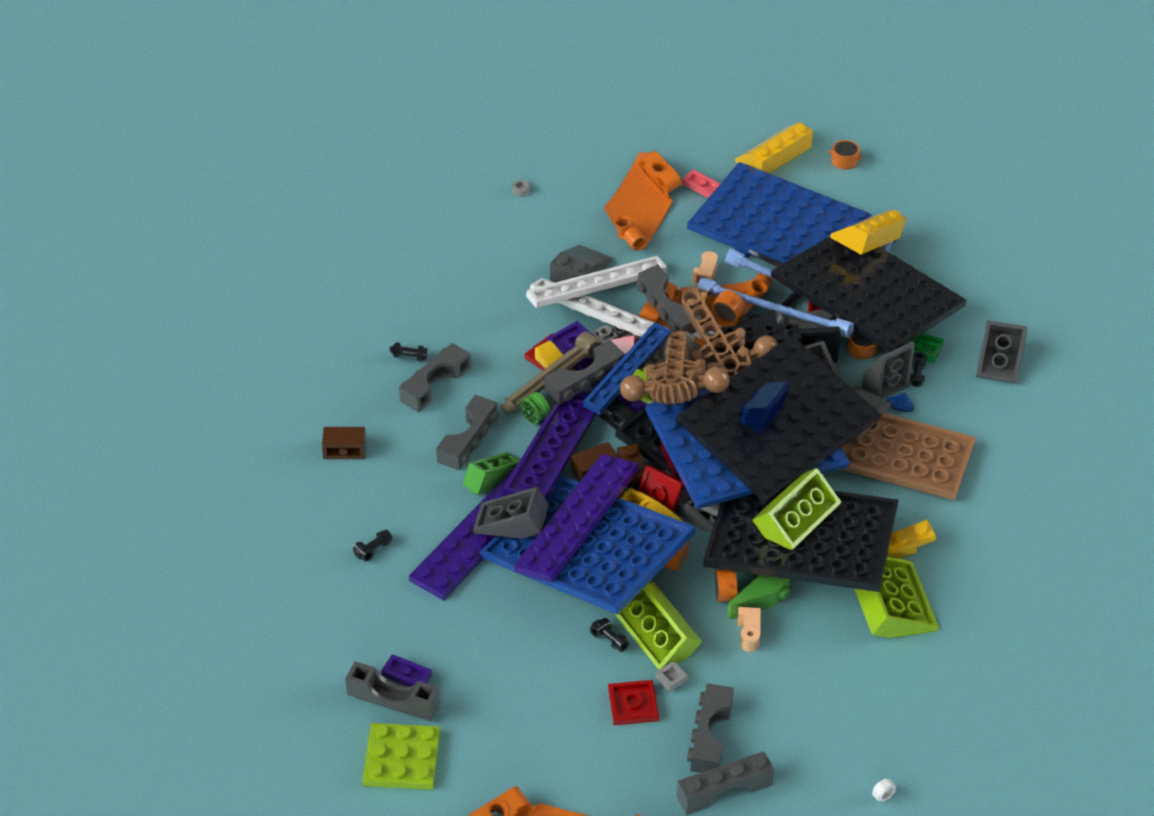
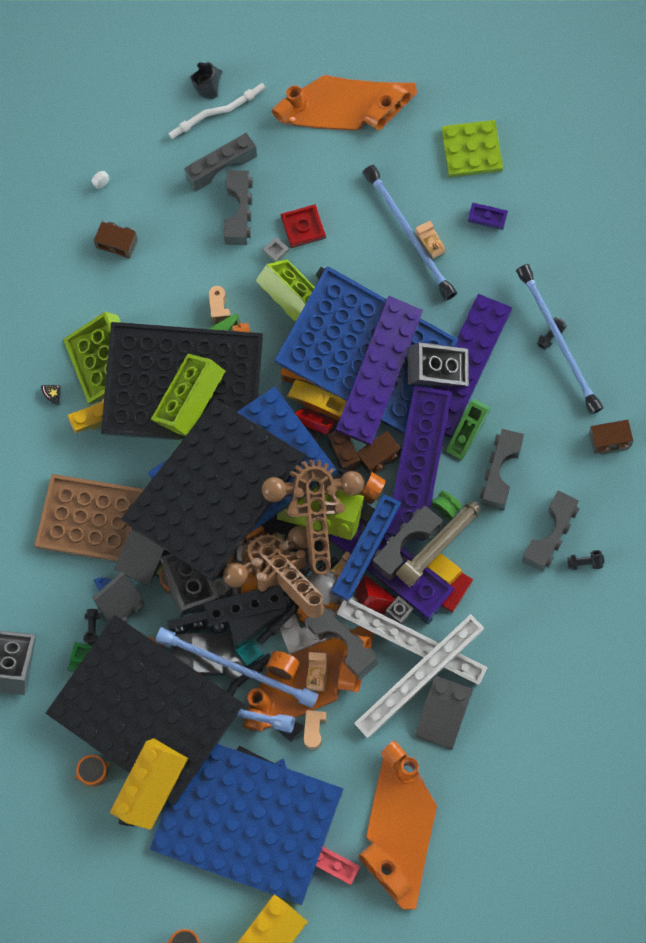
camera: 175 degrees right, 25 degrees up
(383, 590) = (592, 402): none -> light blue hose
(416, 700) = (473, 188): dark grey arch -> none
(483, 656) = (430, 240): none -> light nougat leg
(521, 188) = (533, 827): light grey tile -> none
(534, 739) = (446, 289): none -> light blue hose
(606, 429) = (372, 487): none -> orange piece
(729, 276) = (296, 729): none -> black tile
(764, 405) = (225, 469): clear blue slope -> none
(868, 716) = (116, 239): none -> reddish brown brick
(925, 264) = (92, 771): none -> piece
(954, 575) = (52, 393): none -> black tile

